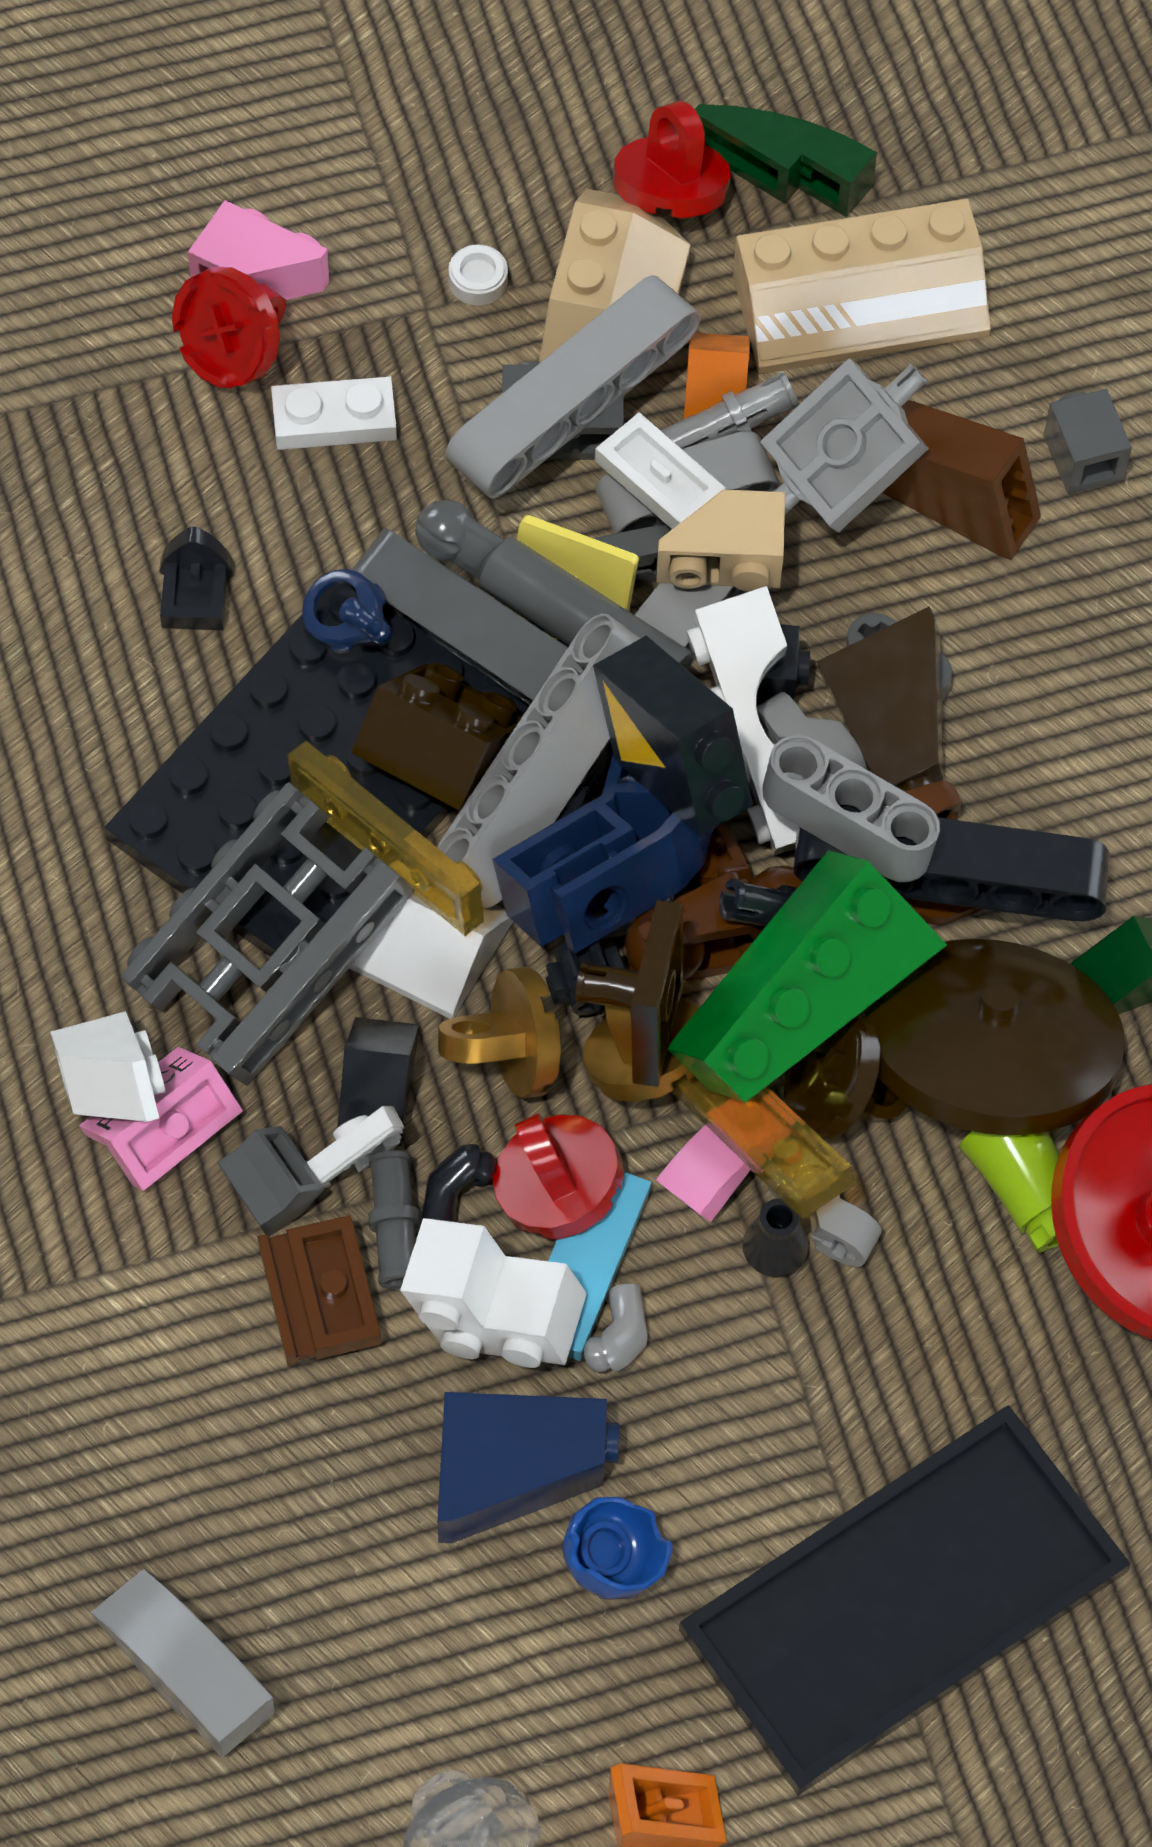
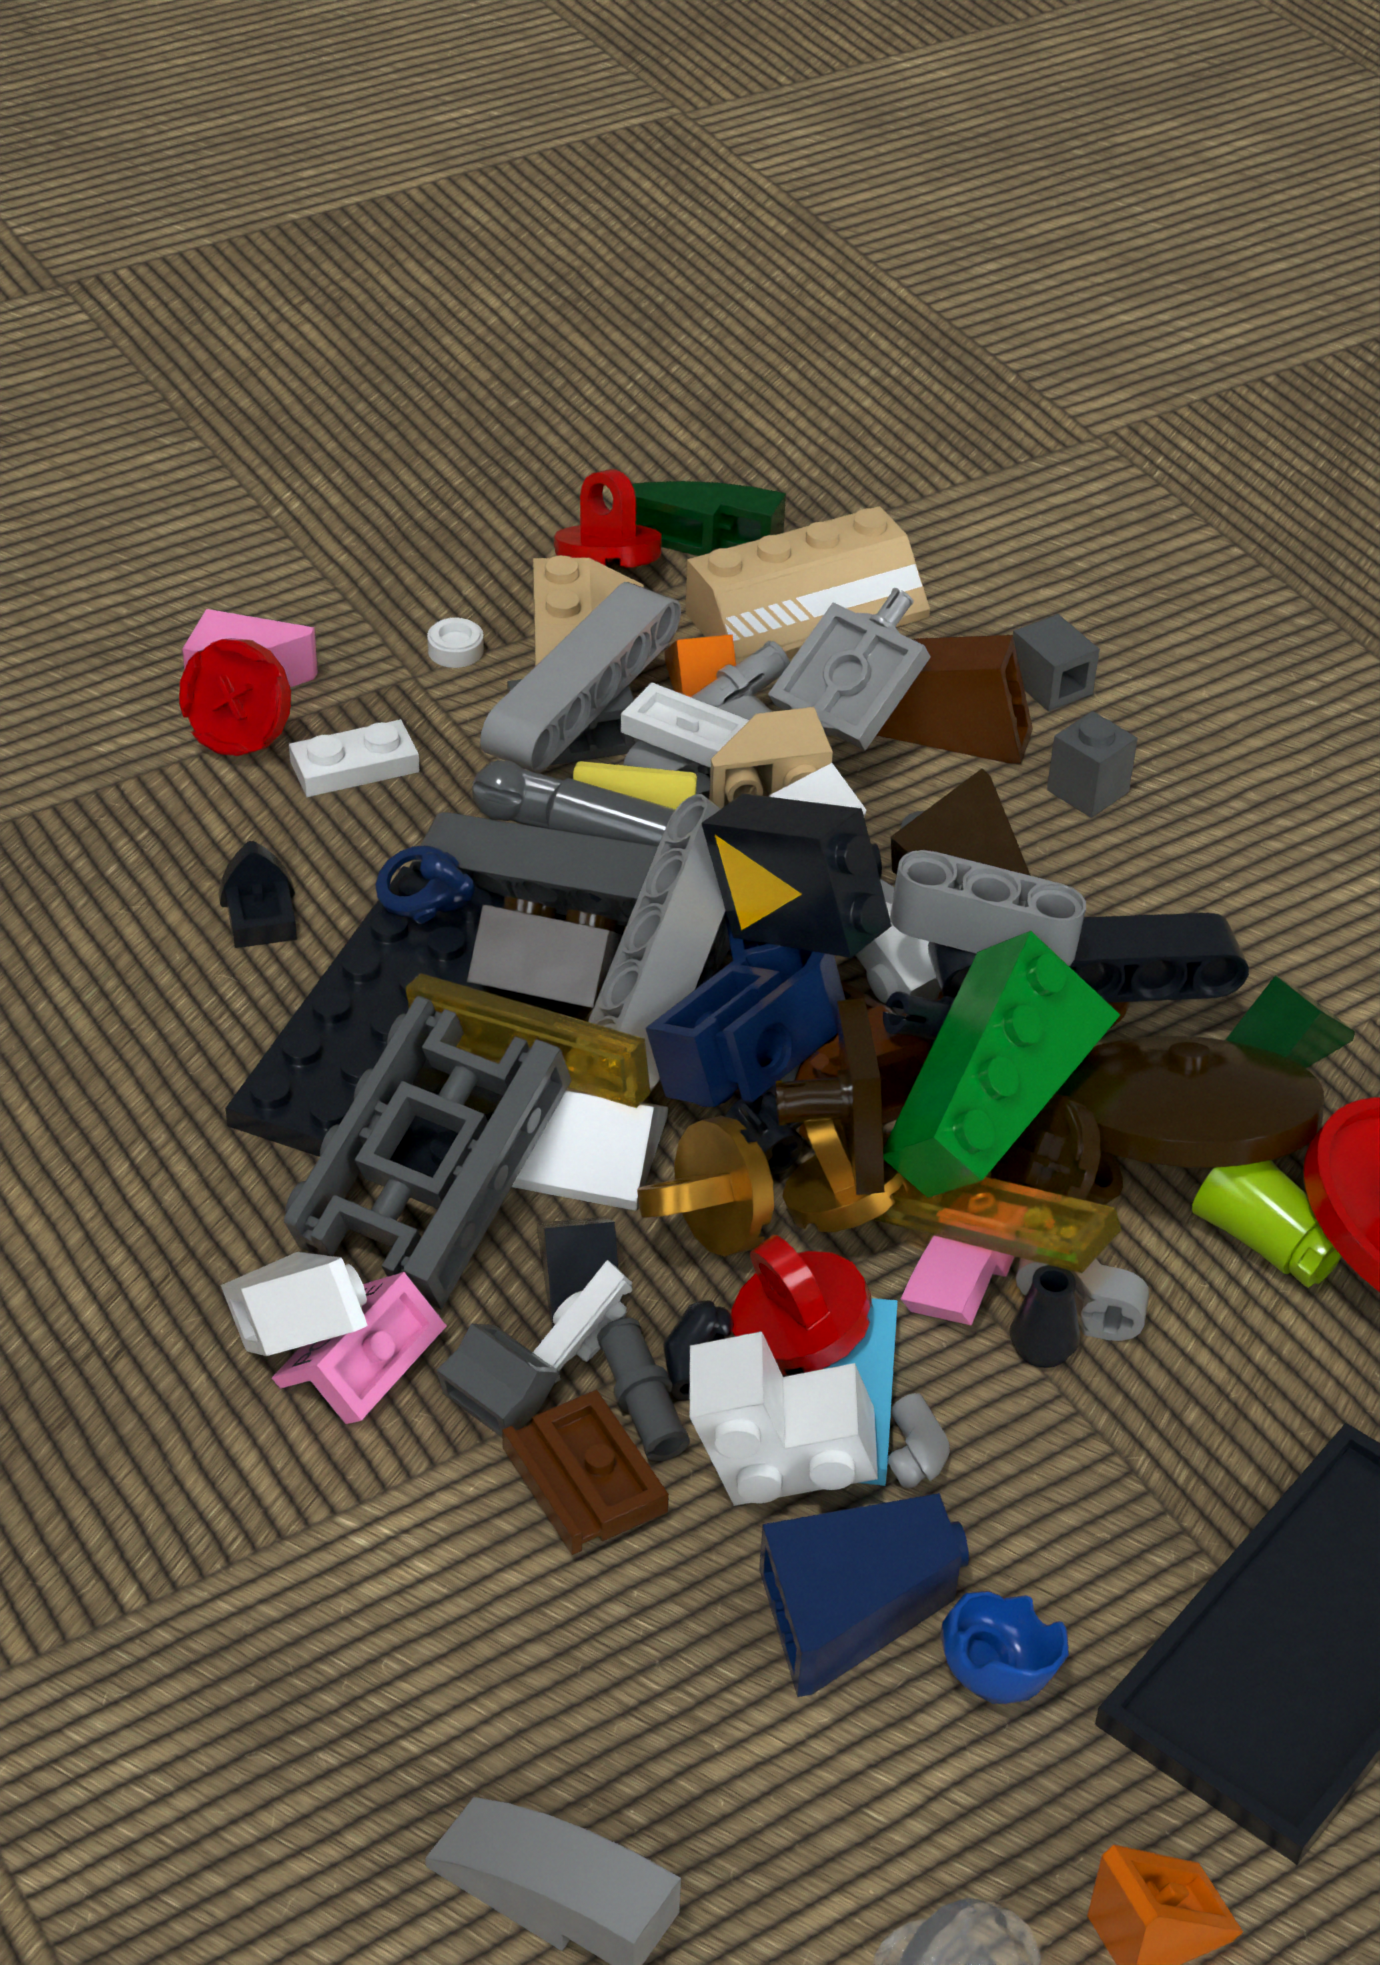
camera: 15 degrees left, 20 degrees down
(1071, 591) = (1091, 764): none -> dark grey brick

